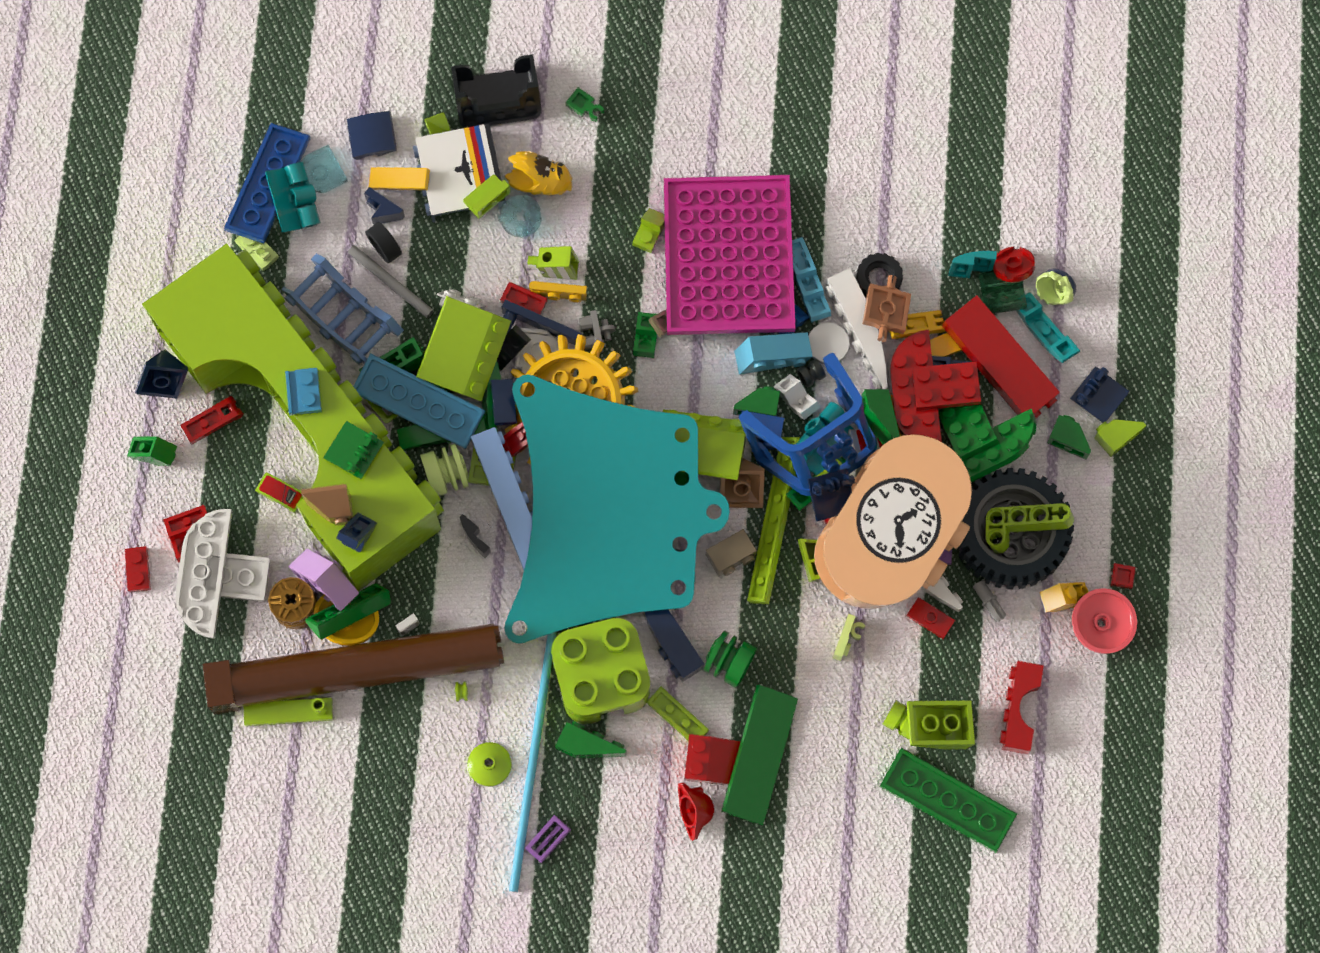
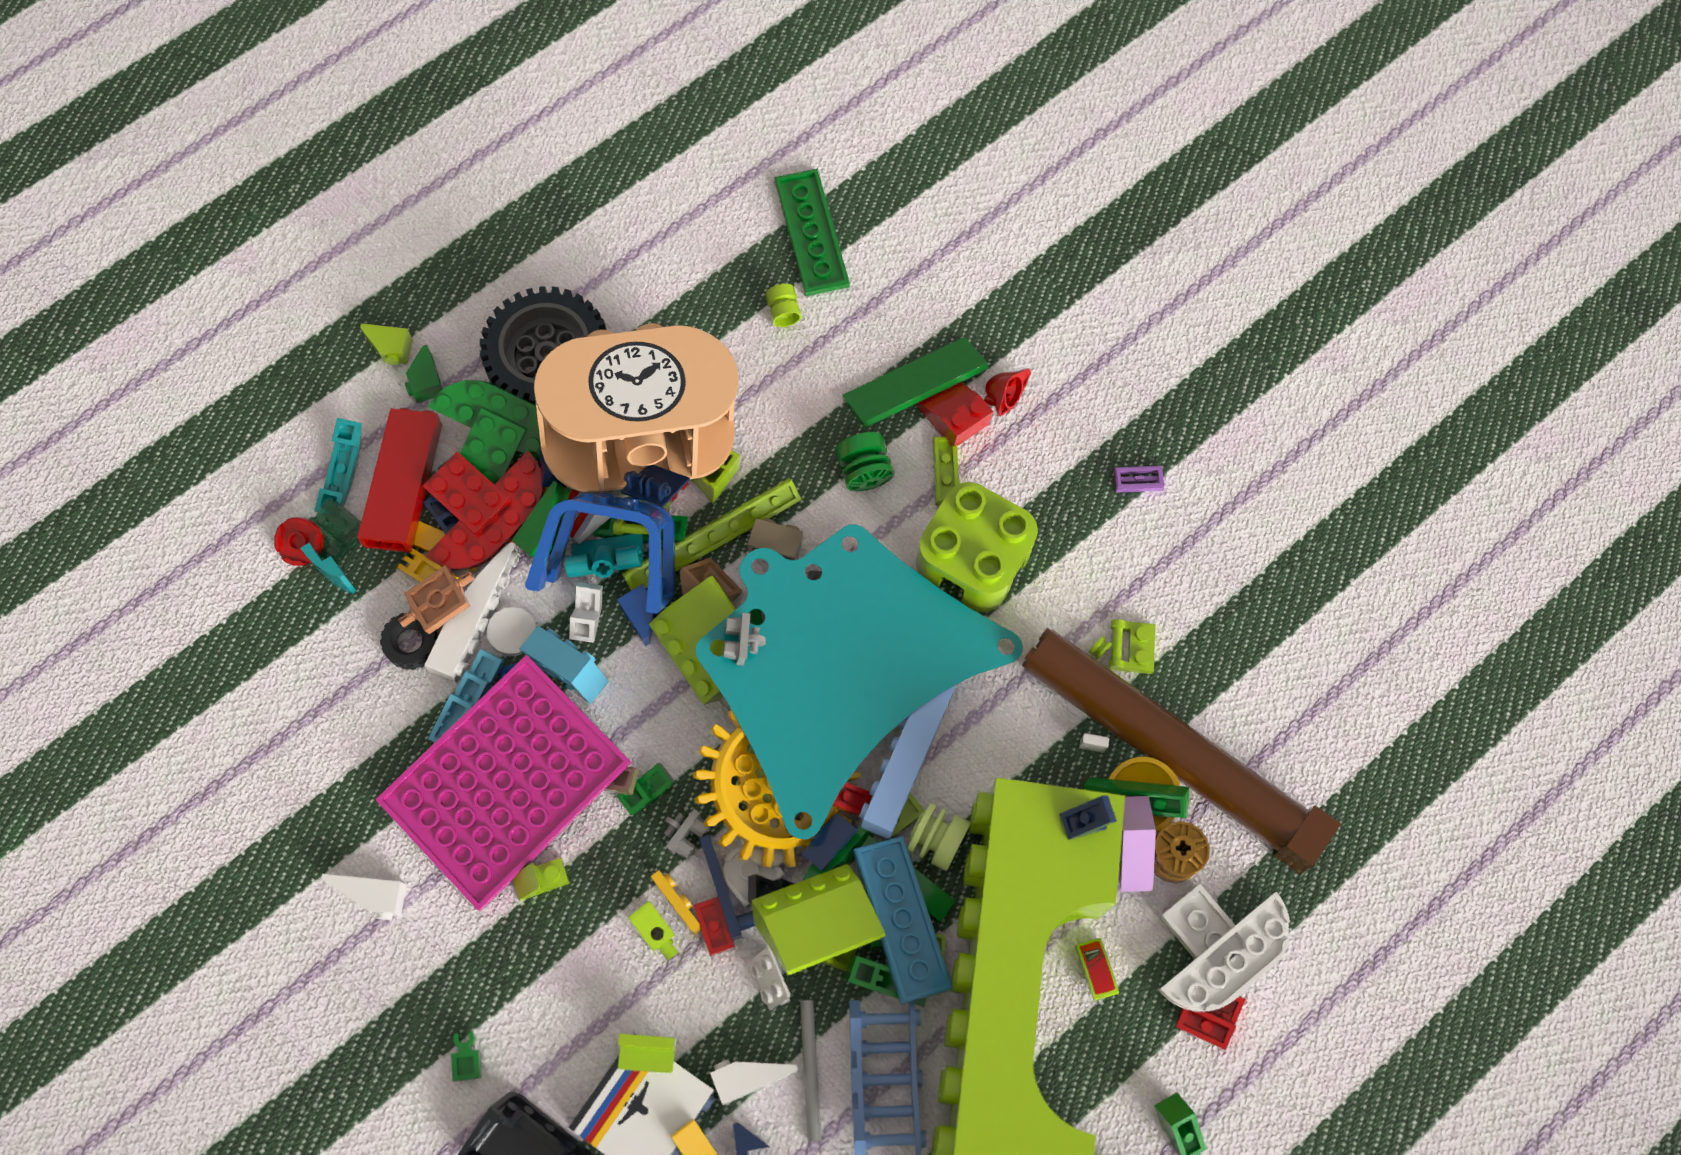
camera: 135 degrees left, 5 degrees down
(137, 569) = (1287, 1028): red plate -> none
(211, 420) = (1099, 1102): red plate -> none
(289, 712) = (1236, 745): lime piece -> none
(303, 391) = (1012, 1002): dark azure plate -> none
(330, 502) = (1089, 864): medium nougat slope -> none
(353, 449) = (1019, 899): green hinge -> none
(383, 242) = (782, 1109): black tyre -> none
(421, 241) = (743, 1078): none -> white slope
(437, 719) = (1140, 647): none -> lime plate
(471, 531) = (965, 766): black slope -> none
(489, 775) = (1125, 585): lime dish -> none
(509, 218) = (641, 1020): clear light blue plate -> none
(532, 764) = (1095, 543): medium azure piece -> none
(538, 174) = (580, 1026): yellow head -> none
(582, 744) = (1047, 515): green slope -> none
(666, 441) = (739, 649): none -> light grey hips
(673, 644) = (895, 514): dark blue slope -> none
(732, 128) = (376, 895): none -> white slope
(760, 401) = (621, 635): green slope -> none
(811, 373) = (553, 618): pearl dark grey wheel -> none
(849, 627) = (762, 400): yellowish green plate -> none
(941, 724) = (760, 268): lime slope -> none
(989, 600) = (625, 320): light grey axle -> none
(1018, 735) = (667, 249): red arch -> none
(1028, 523) = (530, 331): lime beam -> none
(1055, 287) = (291, 489): yellowish green hair -> none
(1062, 596) = (568, 274): yellow slope -> none
(1099, 394) = (363, 386): dark blue hinge -> none
(1114, 611) = (560, 220): coral dish -> none
(1122, 576) = (509, 253): red tile -> none

